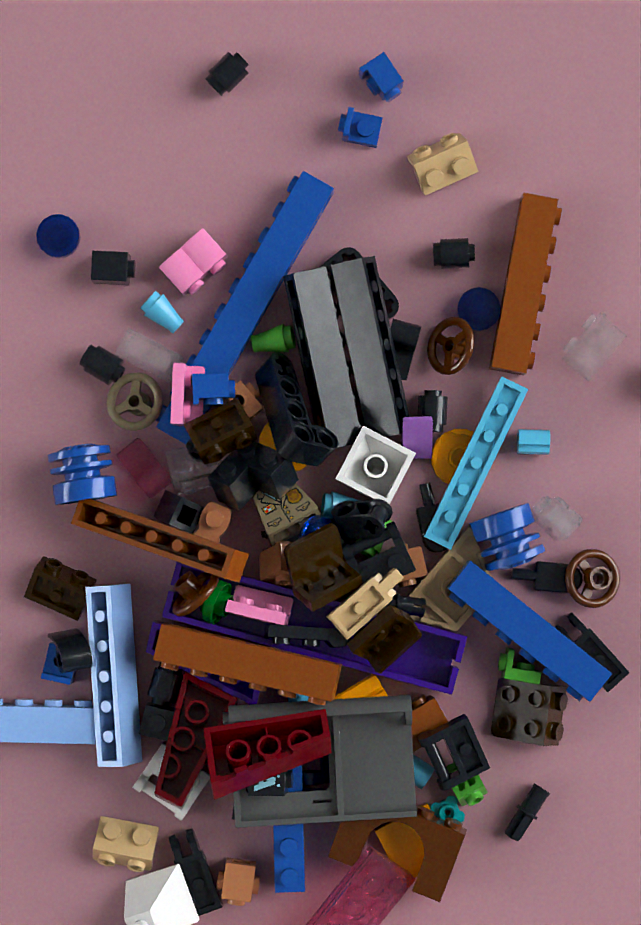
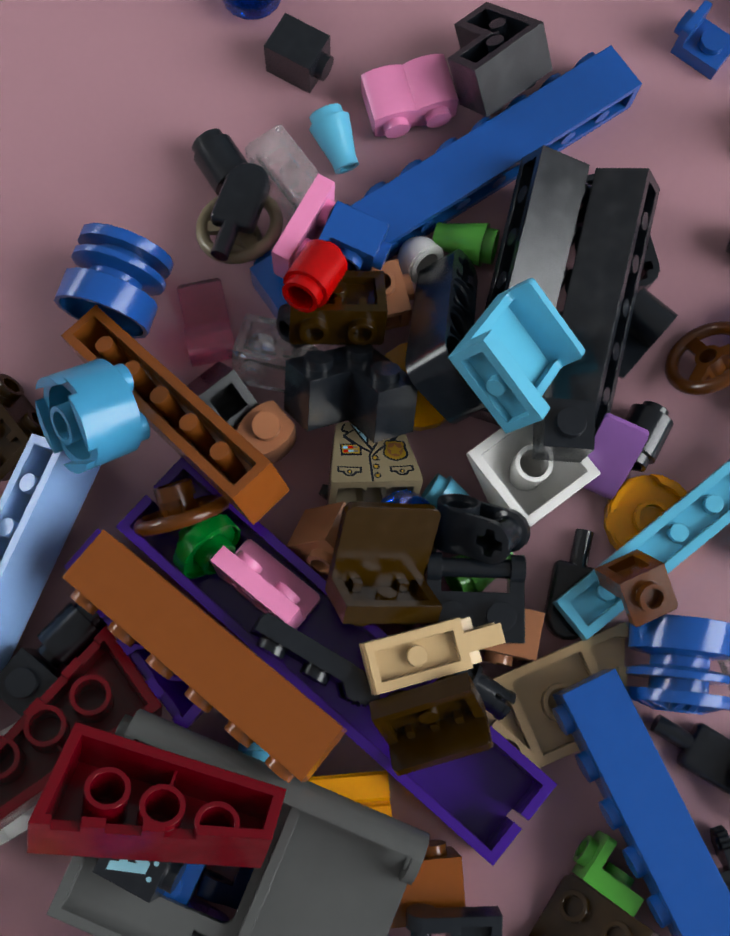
camera: 20 degrees right, 10 degrees down
(120, 565) = (91, 414): none -> dark azure brick
(130, 392) = (238, 206): none -> black piece
(202, 426) = (314, 275): none -> red brick
(240, 216) = (497, 57): none -> black brick
(249, 363) = (417, 254): none -> white piece
(335, 414) = (516, 354): none -> medium azure panel
(382, 443) = (565, 431): none -> black brick
(463, 509) = (640, 584): none -> reddish brown bracket

